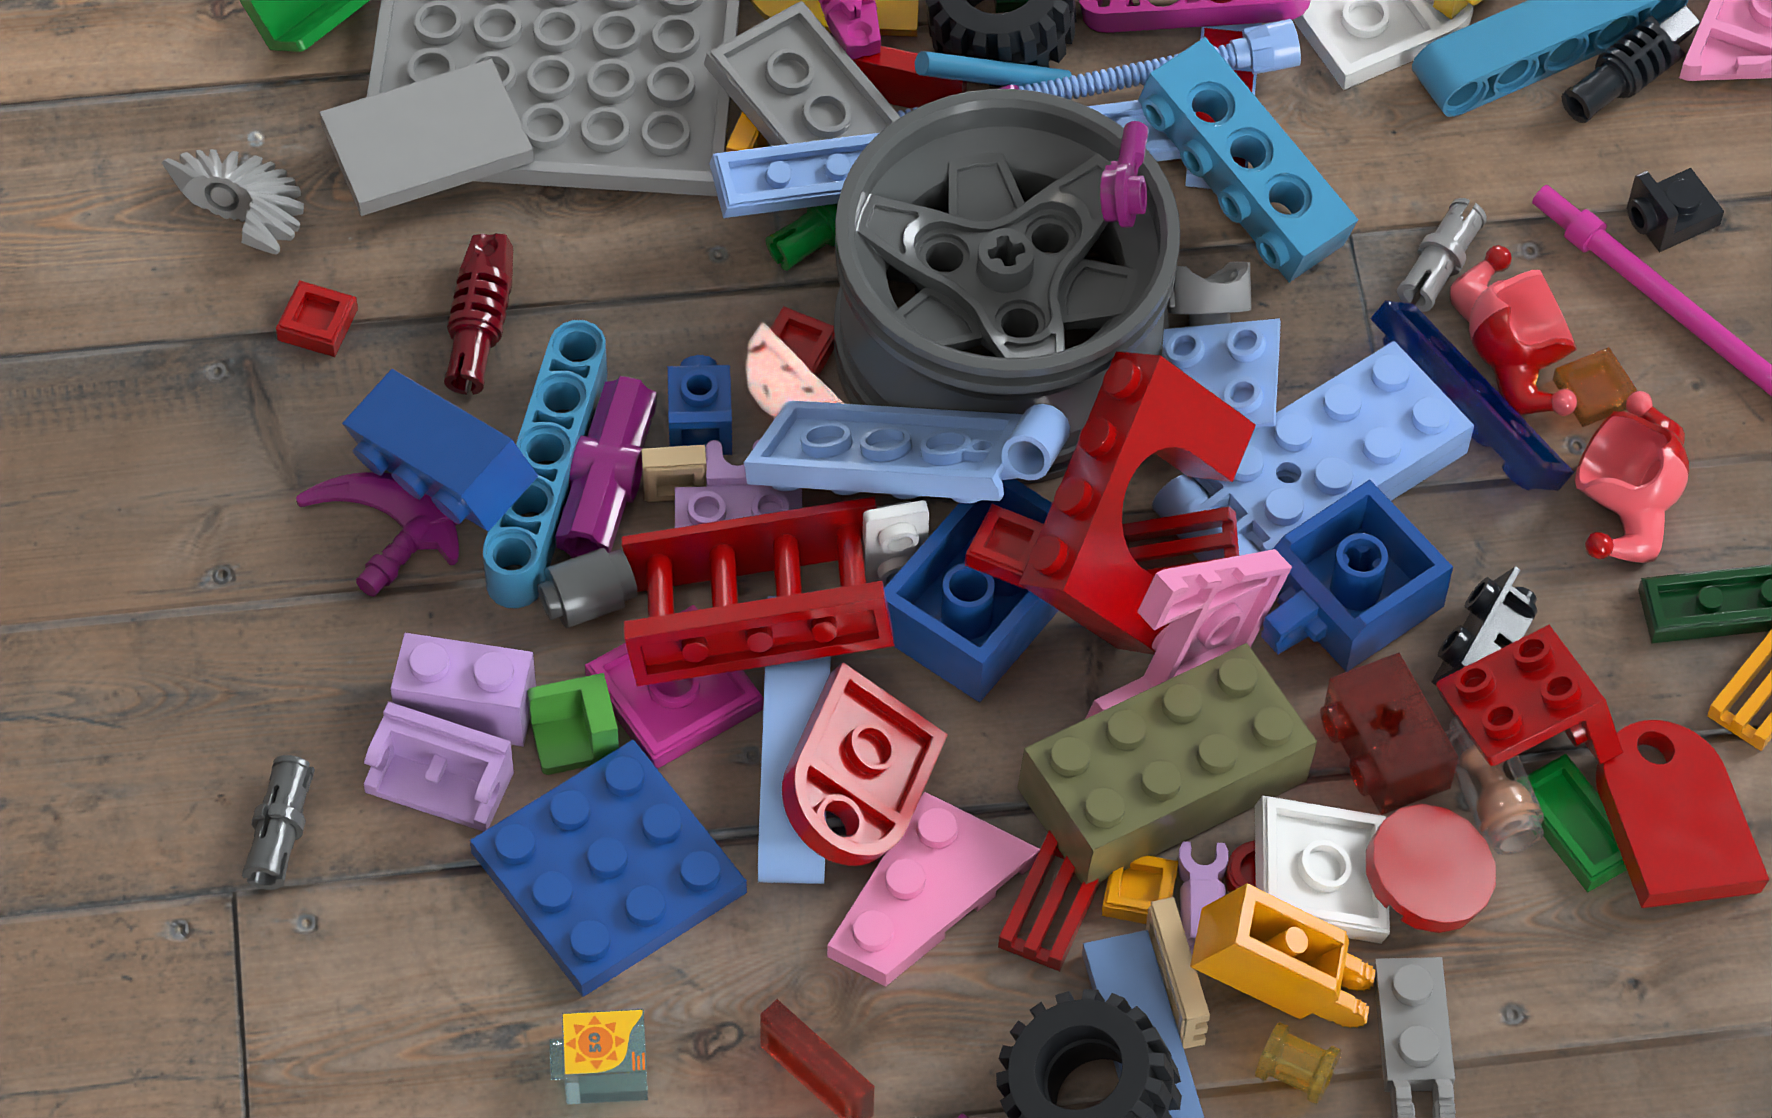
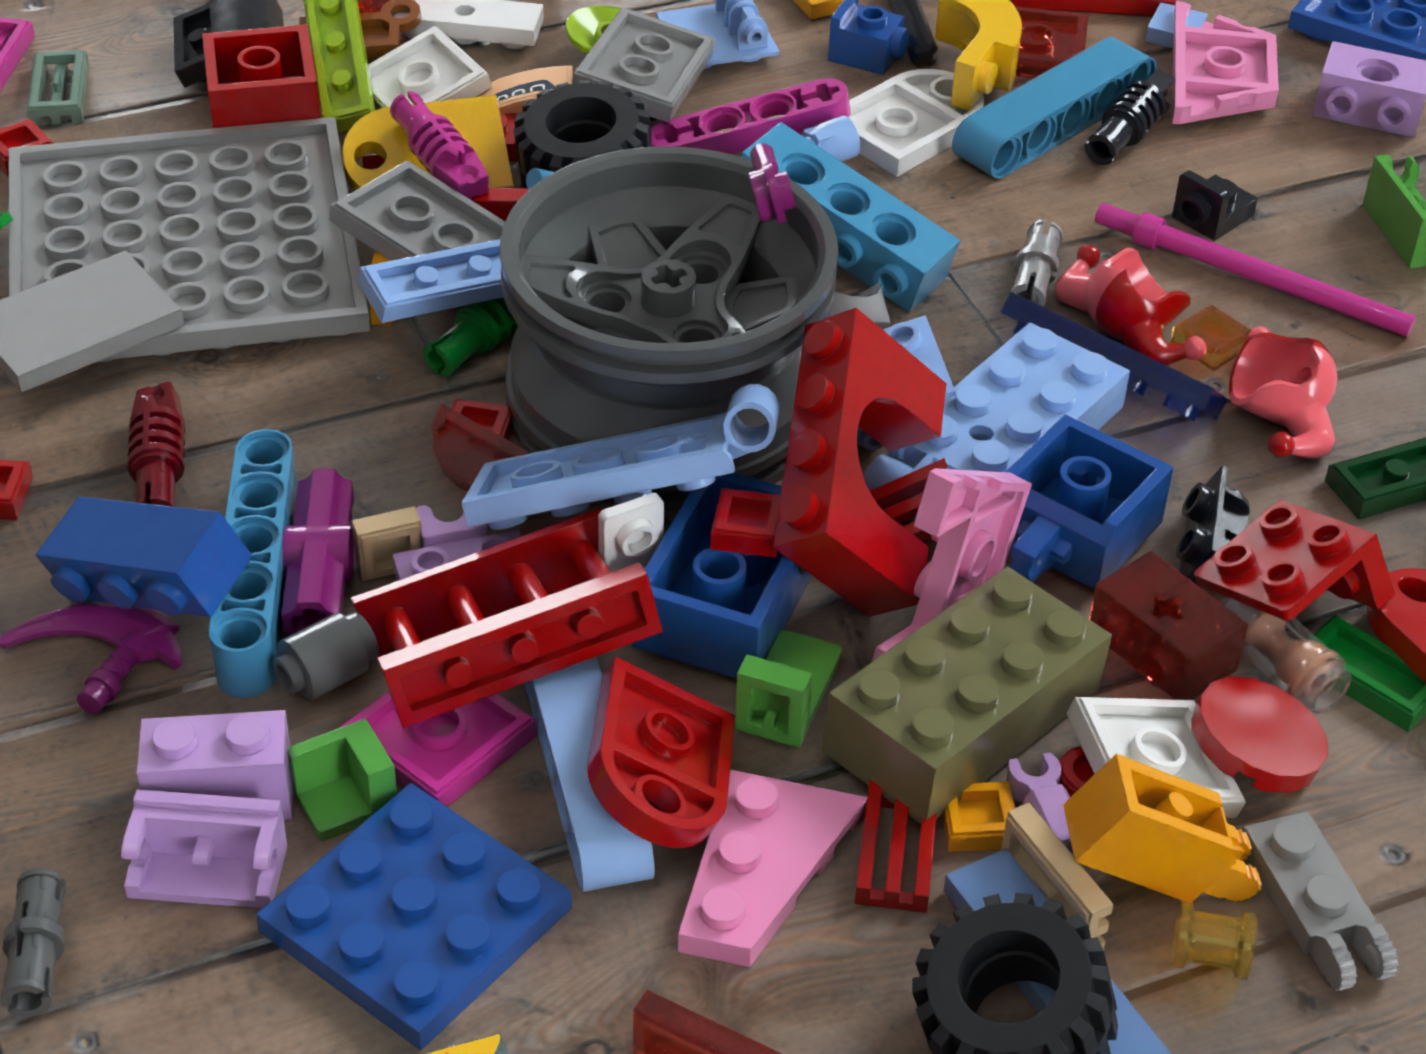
camera: 15 degrees left, 15 degrees down
(700, 403) = (395, 474): blue brick -> none
(1007, 716) = (784, 691): none -> bright green bracket

